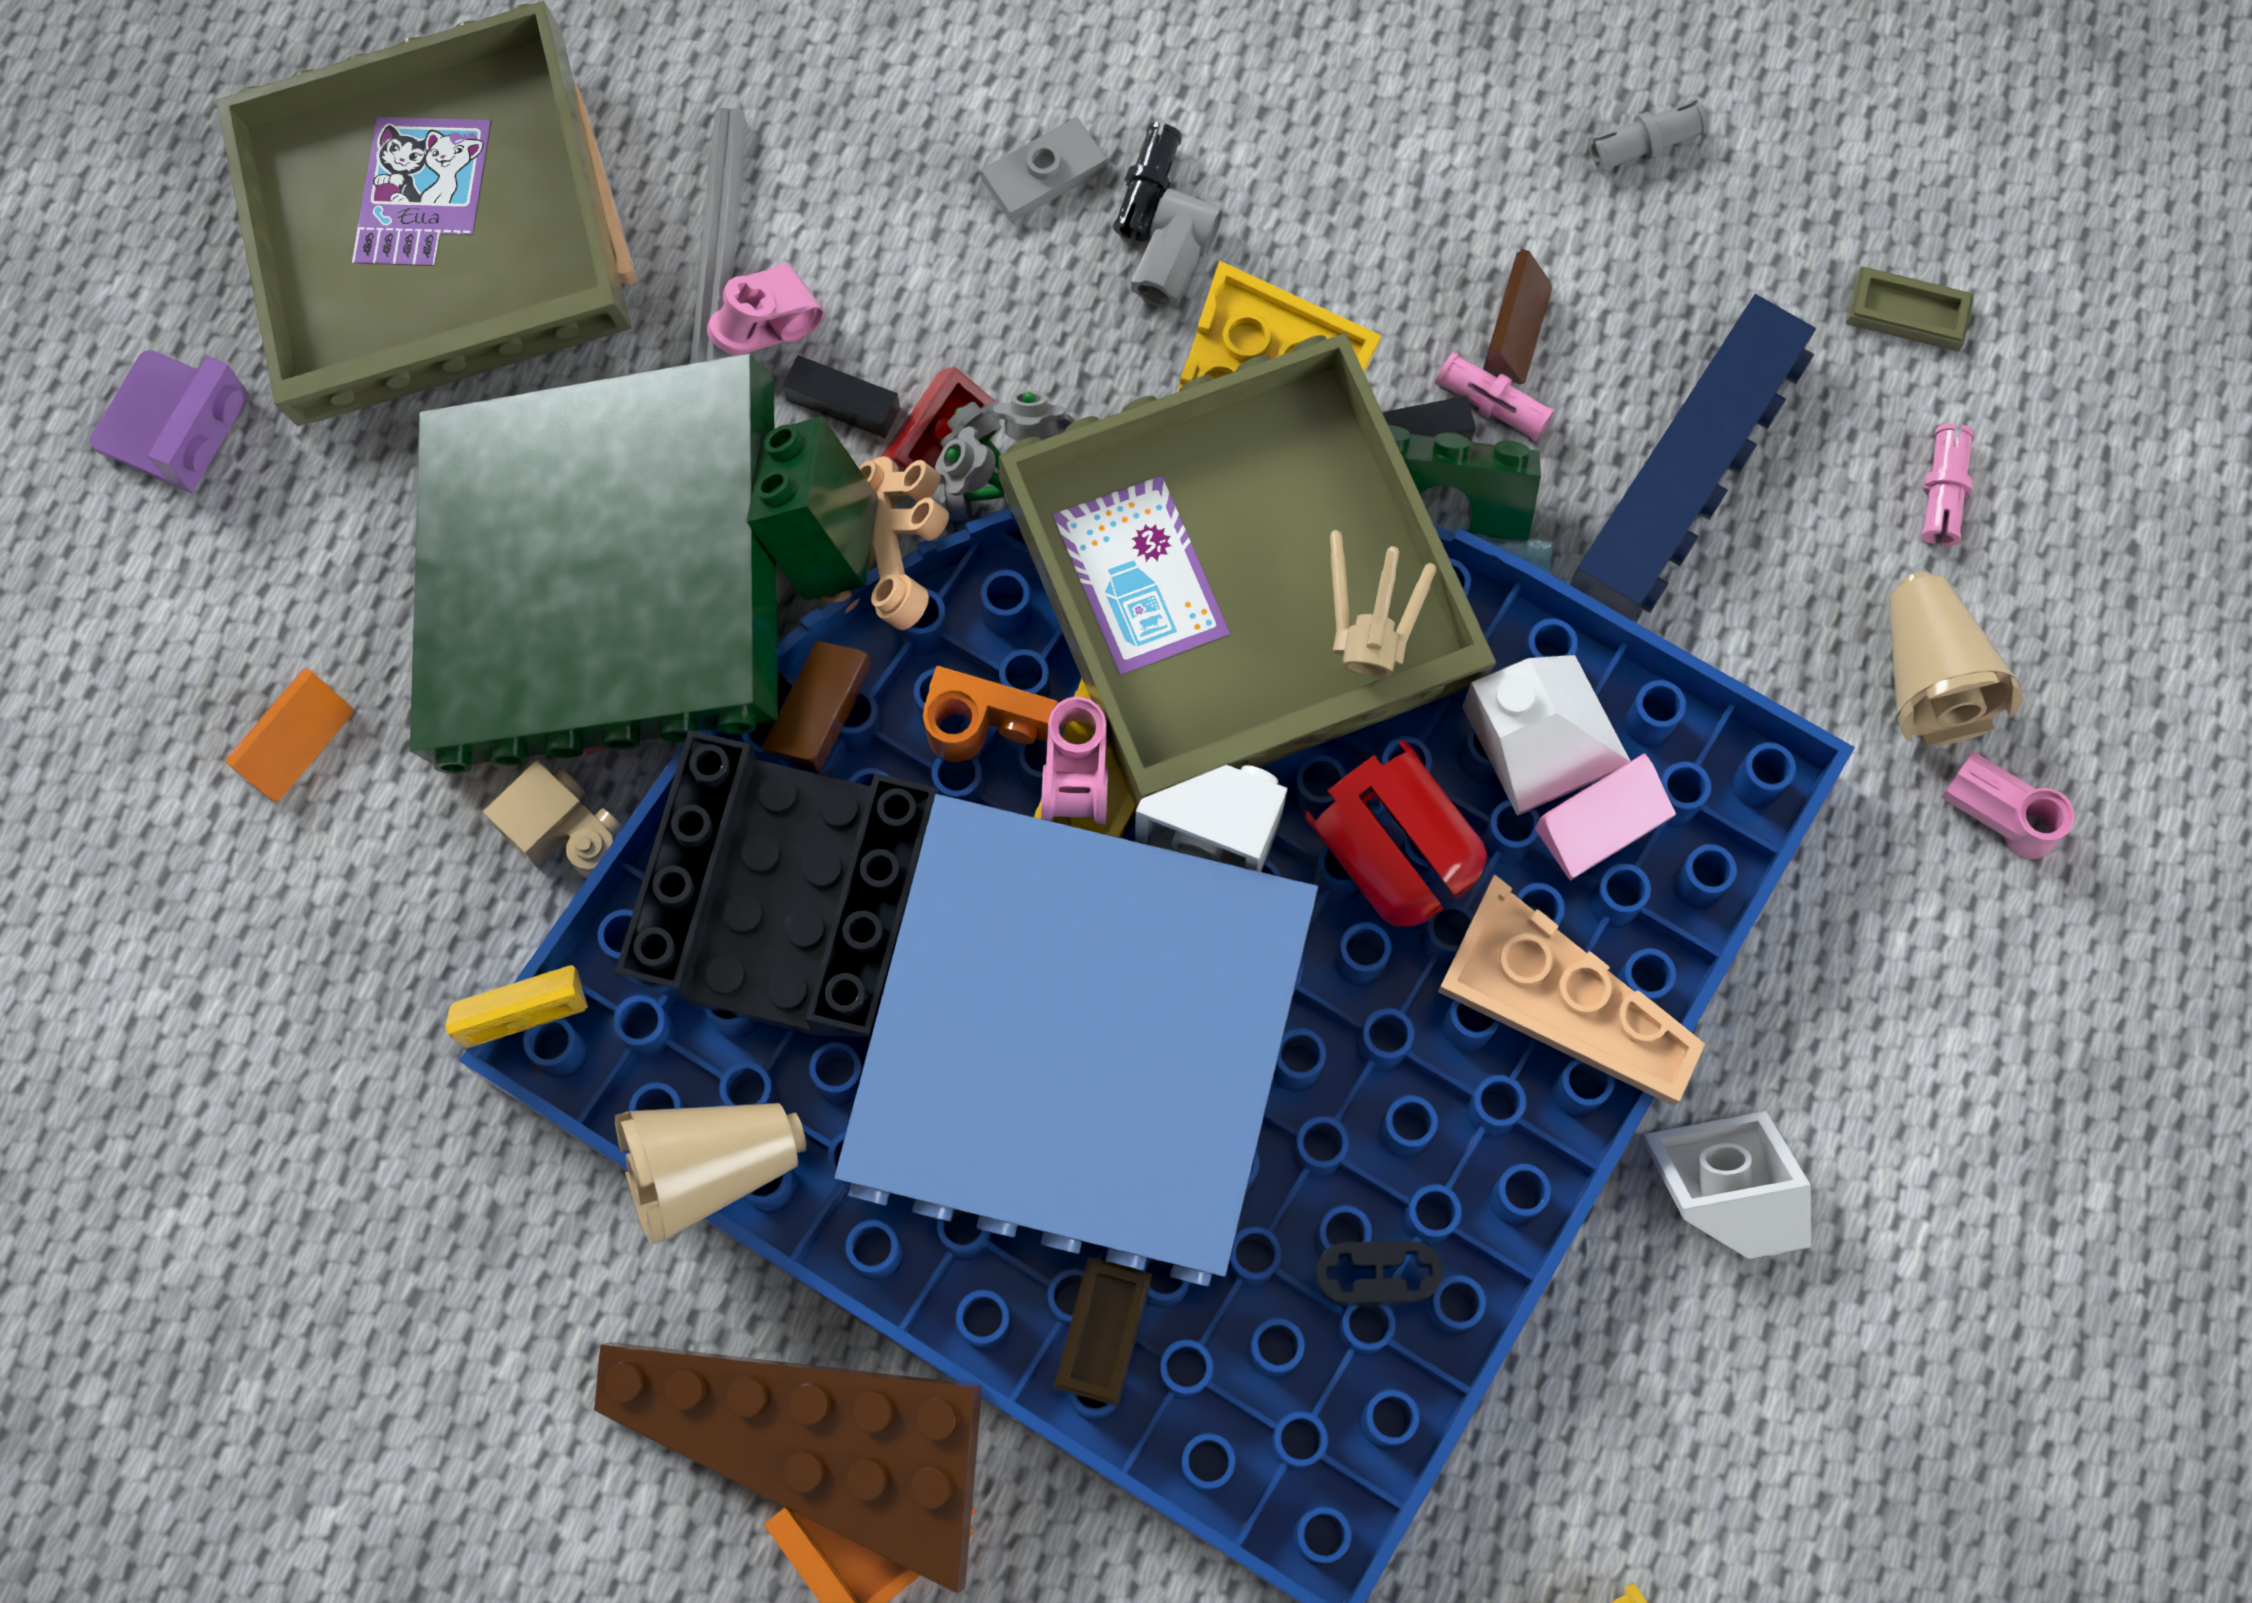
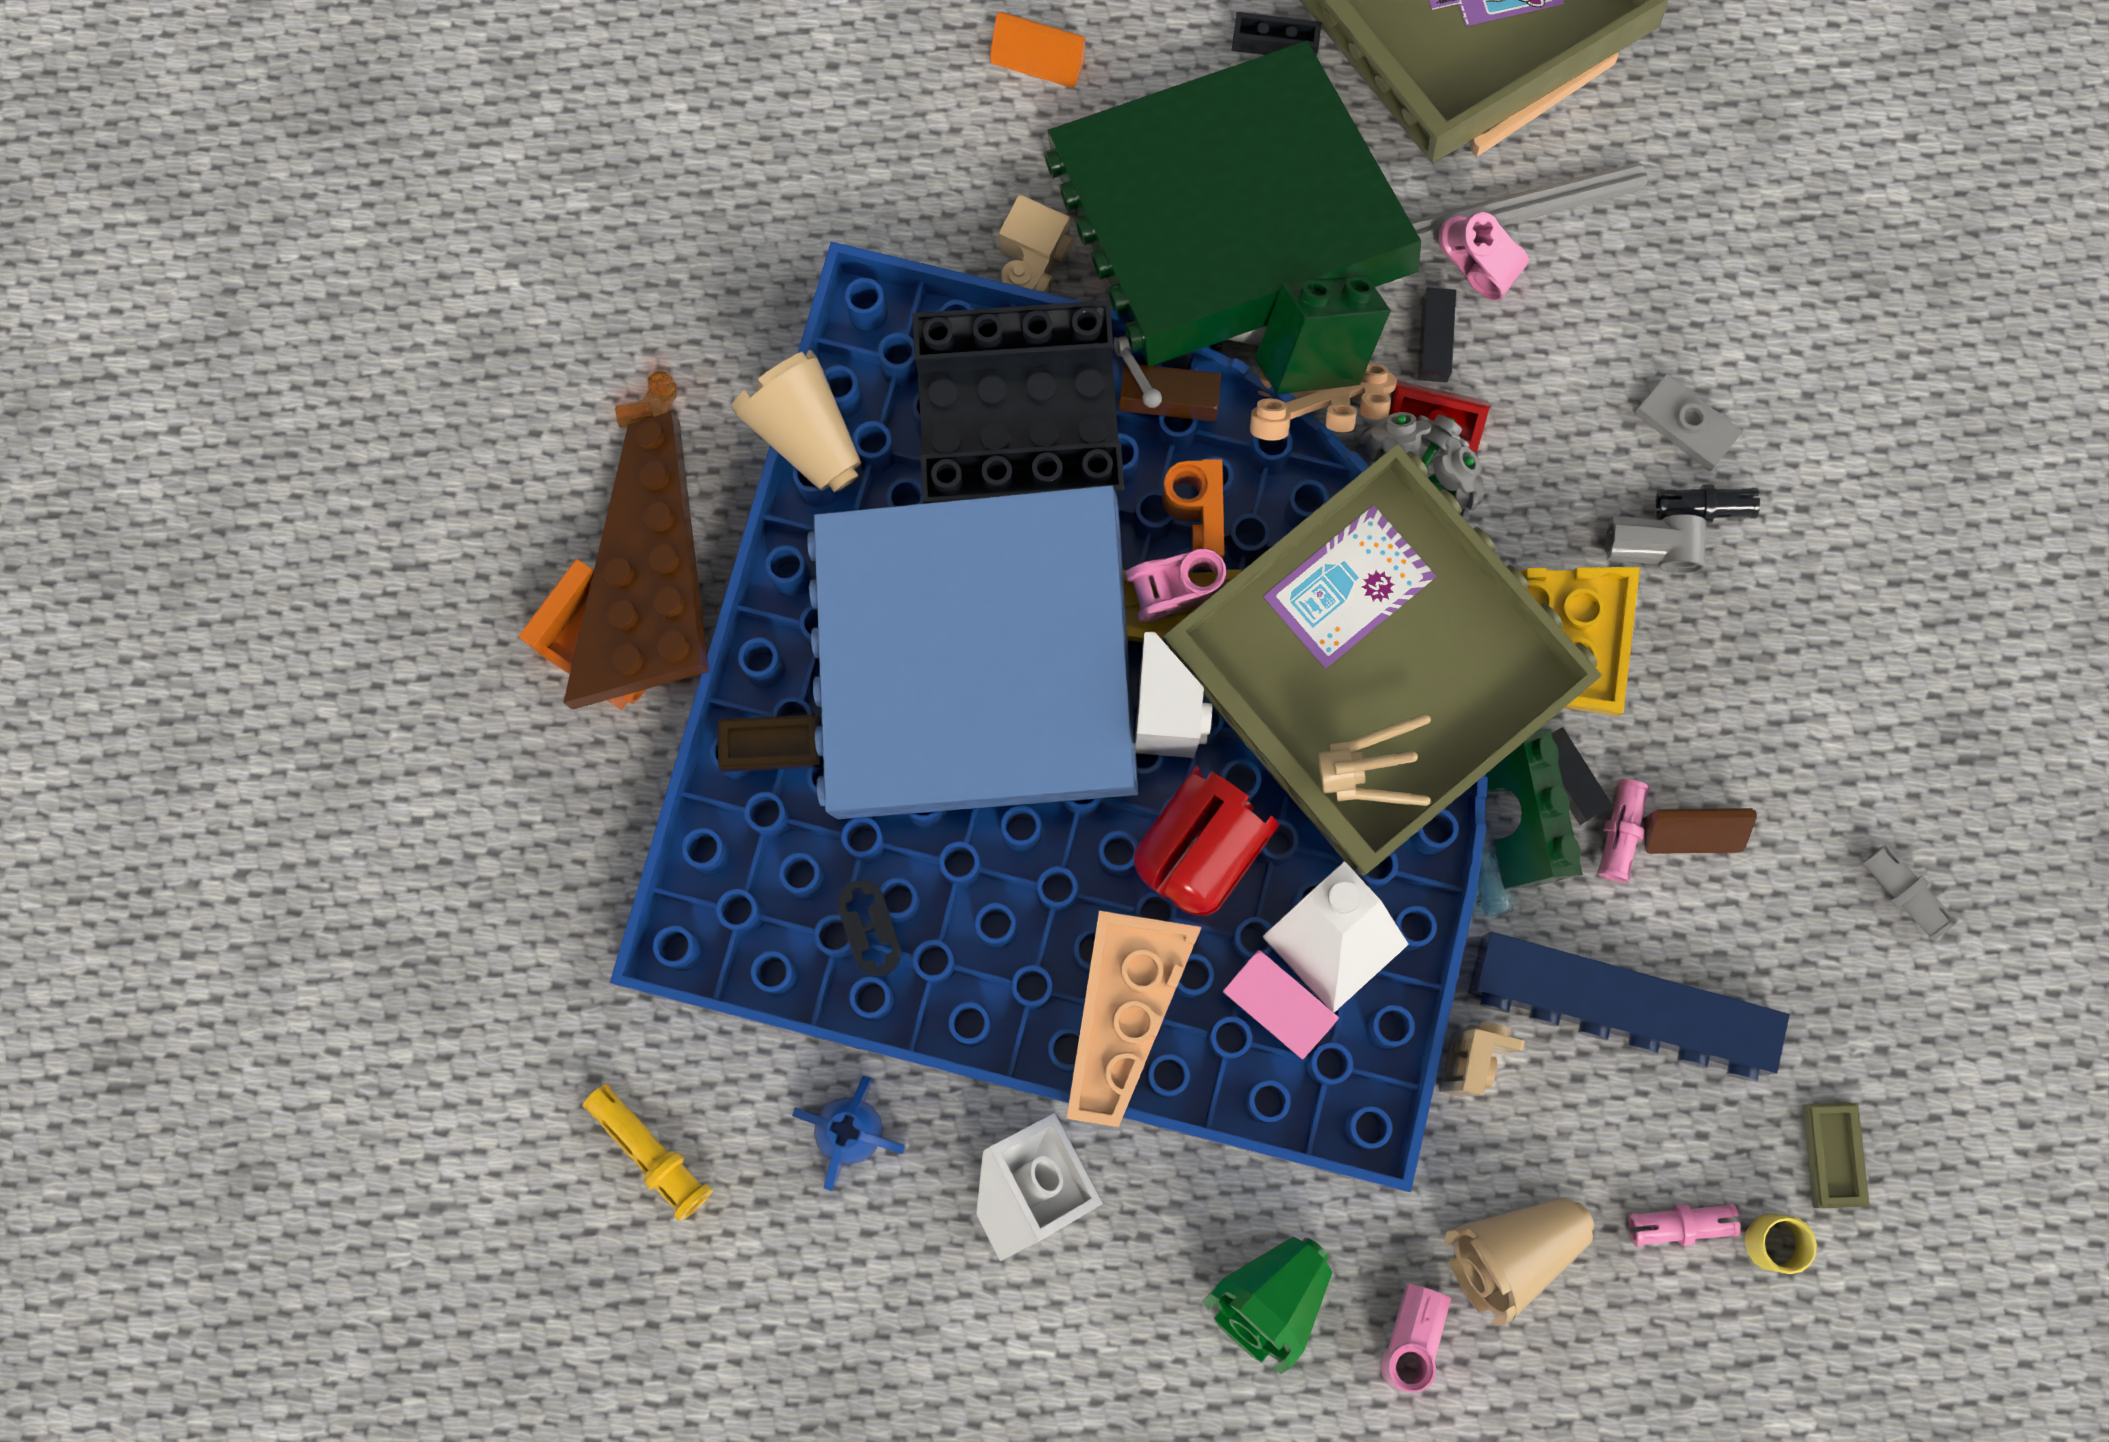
camera: 75 degrees right, 5 degrees up
(387, 453) = (1269, 34): none -> black piece
(516, 1007) = (877, 262): yellow slope -> none
(576, 1368) = (655, 402): none -> clear orange arm
(827, 722) = (1151, 396): none -> light grey hinge
(1603, 1390) = (848, 1131): none -> blue piece
(1719, 631) = (1469, 1058): none -> tan bracket
(1934, 944) = (1274, 1301): none -> green cone
(2011, 376) = (1804, 1248): none -> light yellow piece

